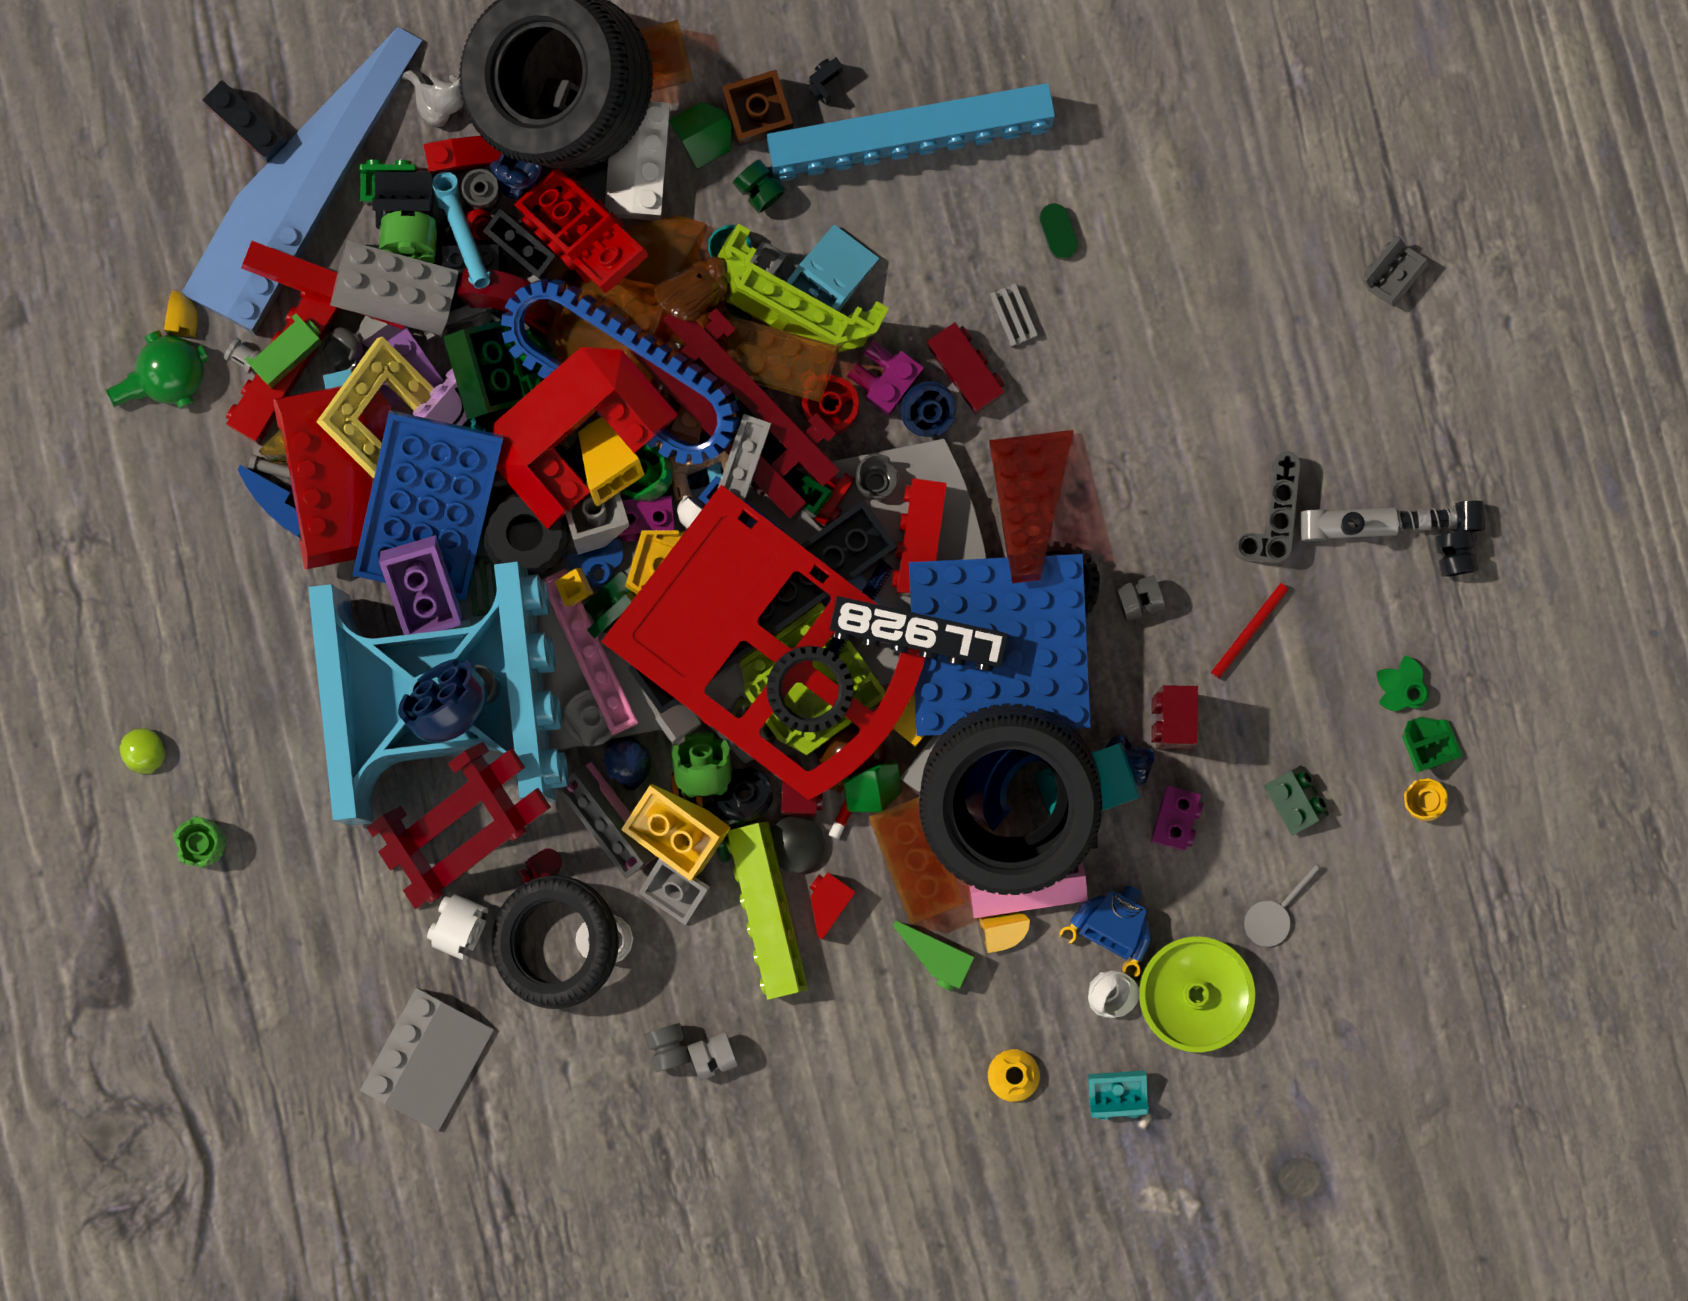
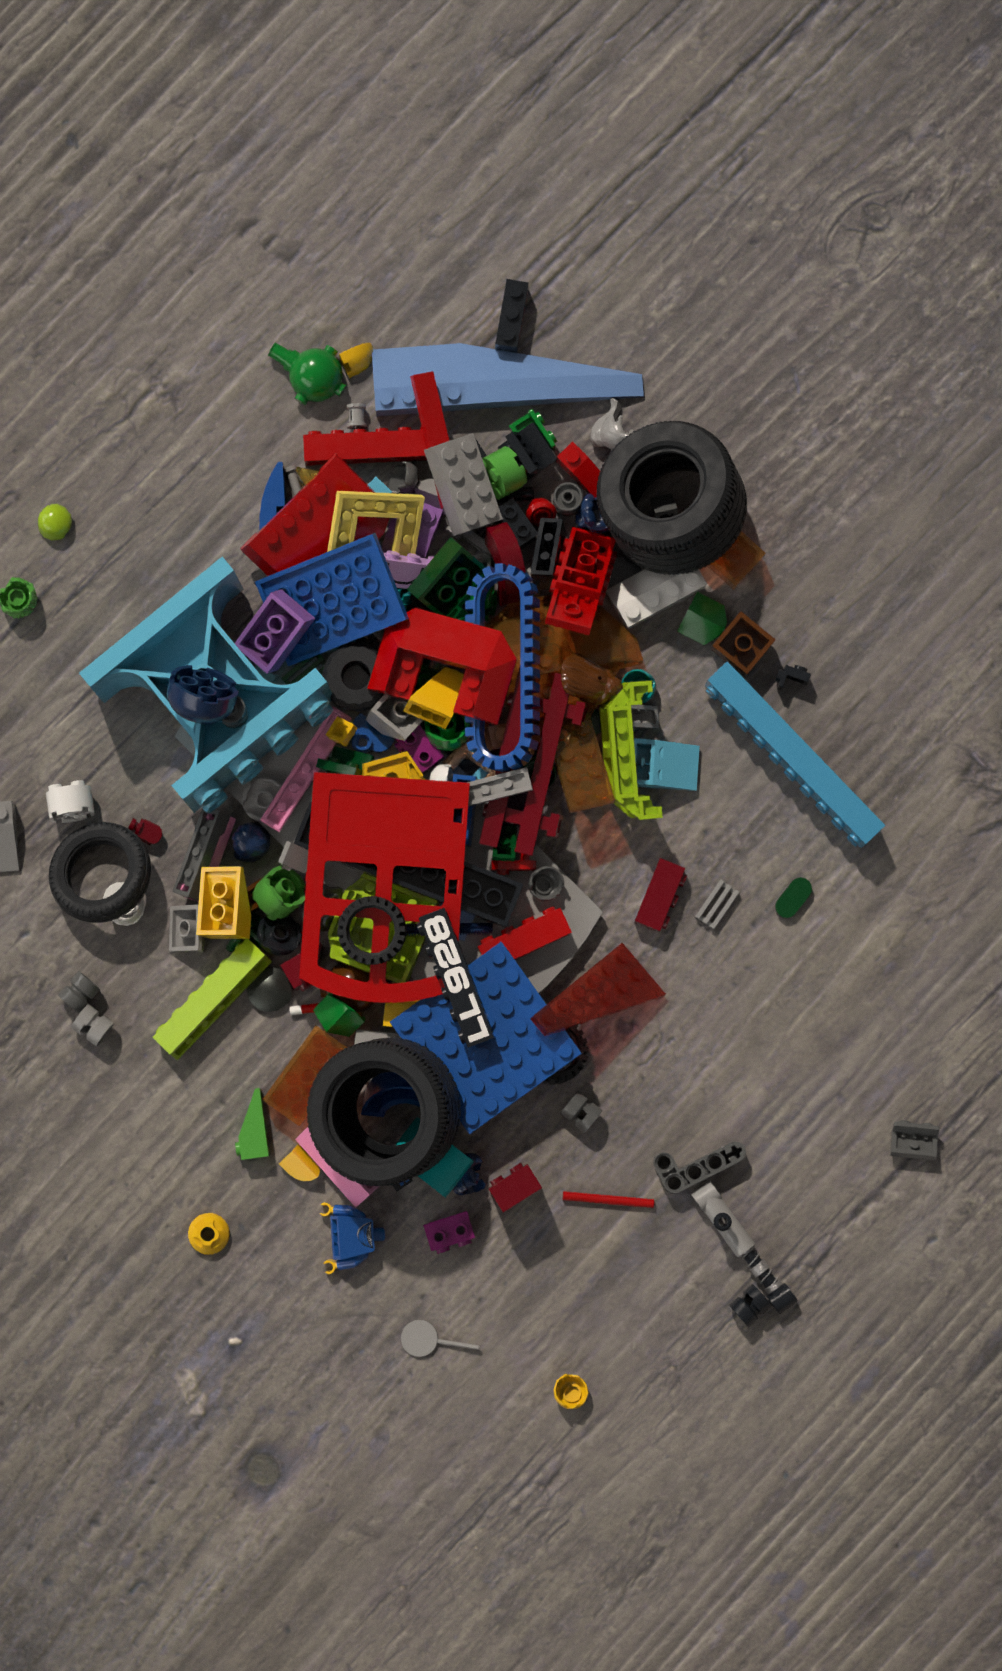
camera: 60 degrees right, 0 degrees up
(286, 351) = (375, 442): bright green brick -> none
(448, 198) = (546, 484): medium azure piece -> none
(483, 786) = (164, 757): dark red fence -> none
(759, 186) = (691, 679): dark green wheel -> none
(828, 901) = (244, 1035): red slope -> none
(845, 412) = (581, 834): red brick -> none
(898, 377) = (618, 855): magenta brick -> none
(928, 409) = (615, 888): dark blue cone -> none
(1113, 994) = (304, 1265): white piece -> none
(1118, 1094) = (239, 1311): teal bracket -> none
(1197, 994) = (339, 1321): lime dish -> none
(1297, 800) = (515, 1305): dark green bracket -> none
(1399, 683) = (638, 1323): green plate -> none
(1430, 743) = (611, 1369): green slope -> none

